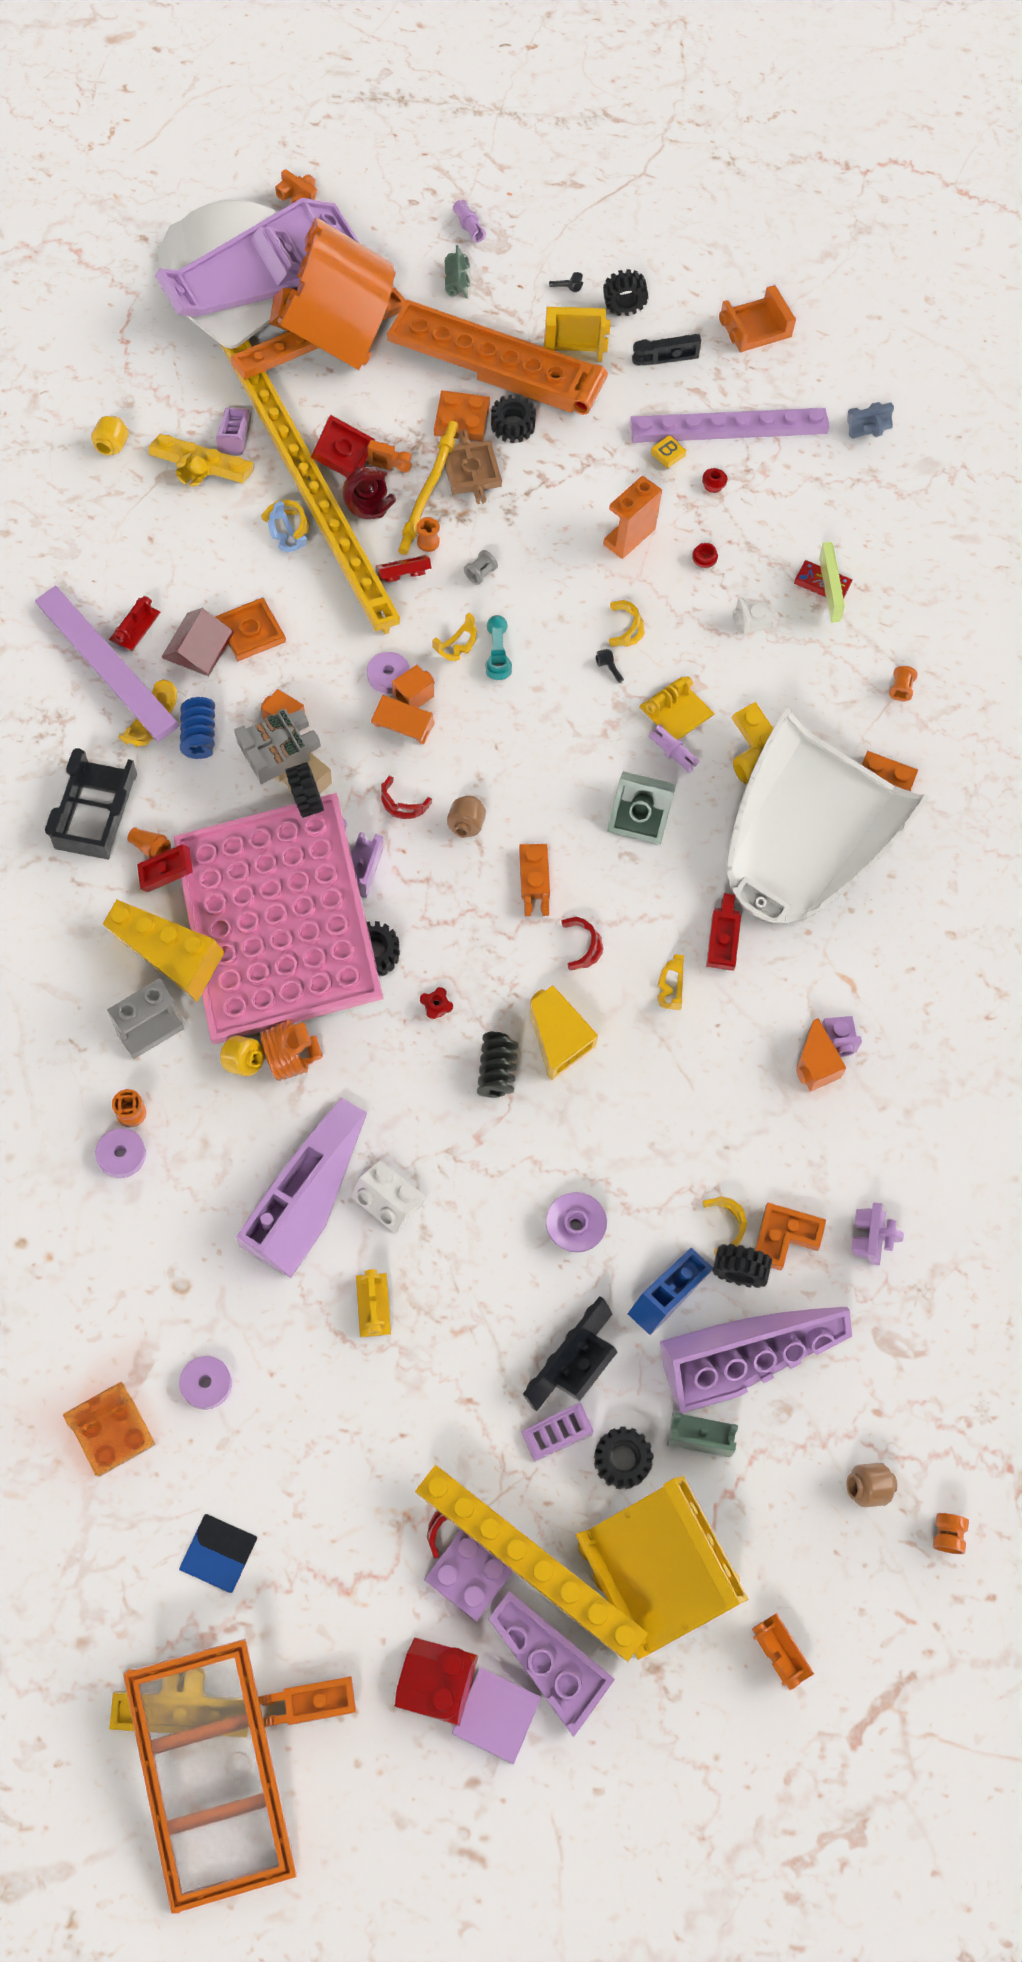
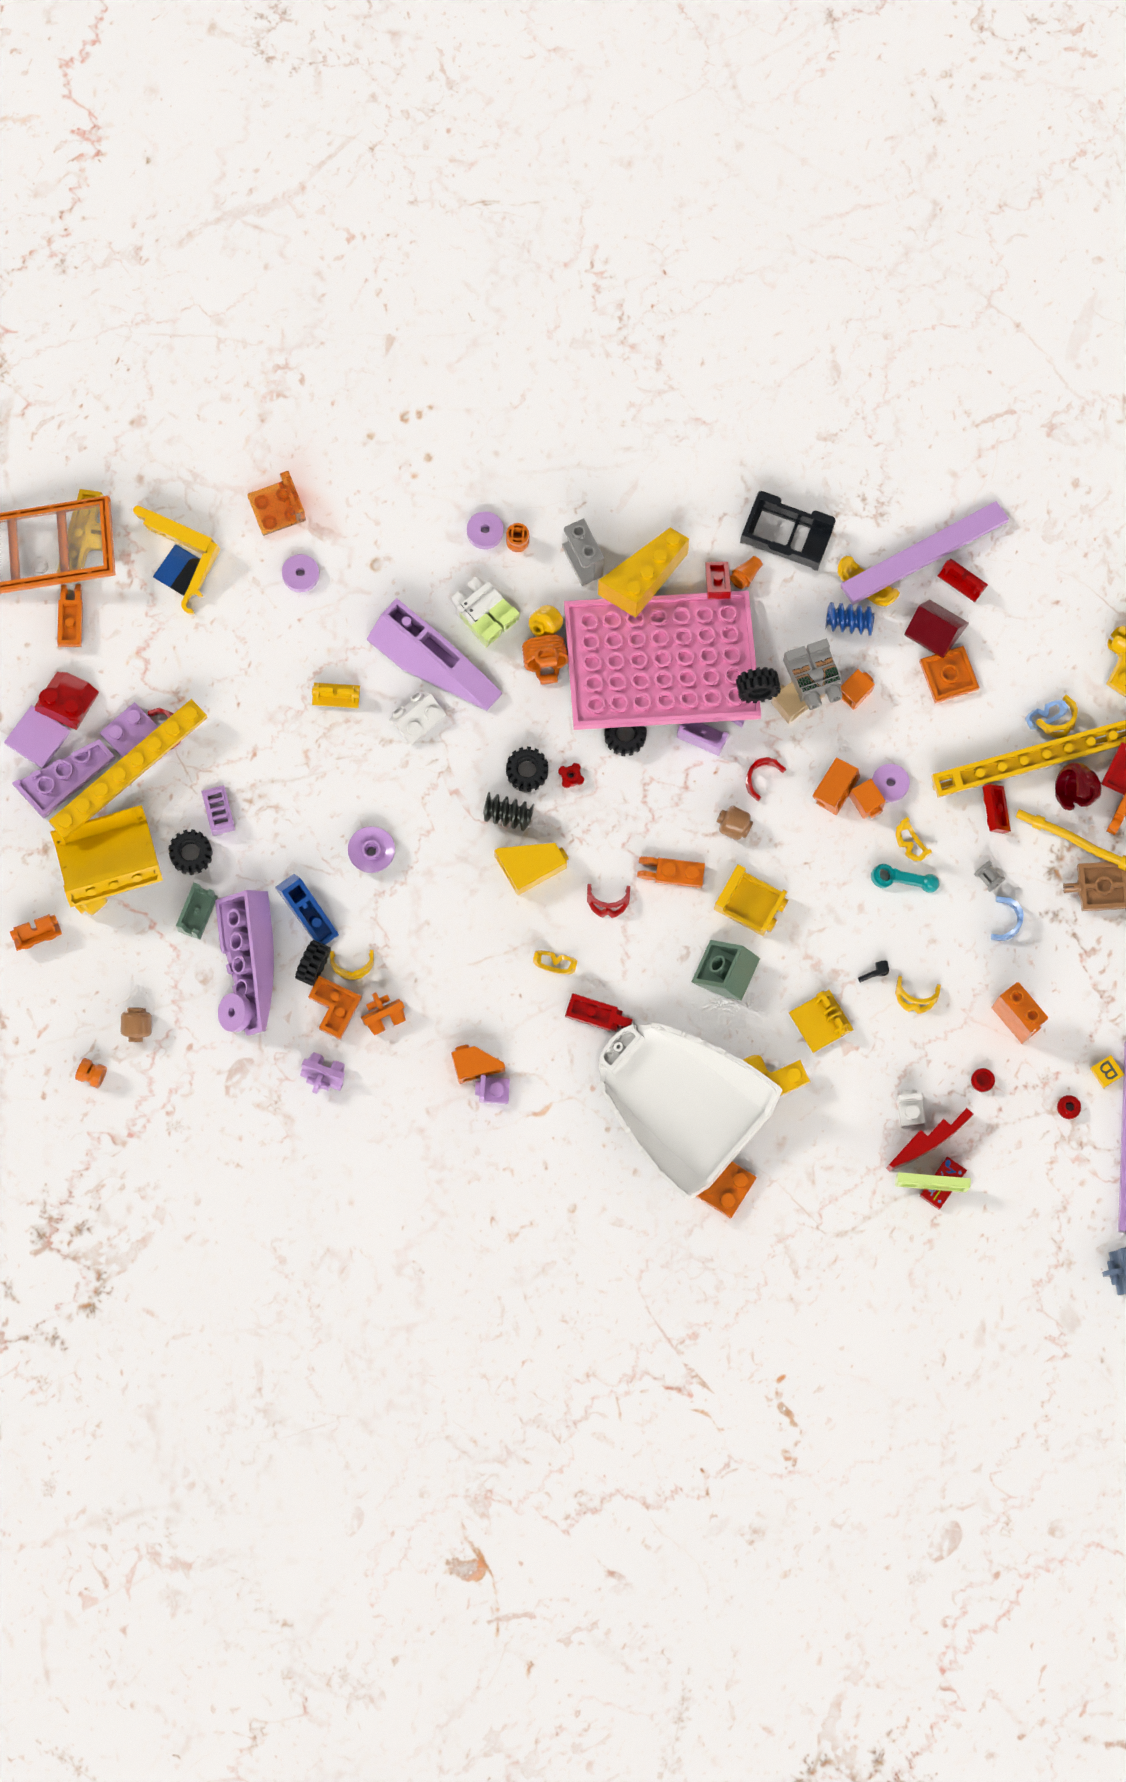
camera: 100 degrees right, 10 degrees up
(173, 1544) = (187, 538): none -> yellow hinge
(235, 1133) = (484, 611): none -> hips
(428, 538) = (1035, 831): orange bush -> none
(437, 1037) = (527, 782): none -> black tyre
(524, 535) = (1019, 912): none -> light blue helmet
(555, 791) = (751, 901): none -> yellow panel
(576, 1361) = (266, 831): black bracket -> none
(674, 748) = (780, 1009): lavender pin -> none
(780, 1175) = (393, 1009): none -> orange hips
(790, 598) = (923, 1144): none -> red slope
(835, 1364) = (234, 1012): none -> lavender piece
(903, 683) = (821, 1226): orange bush -> none

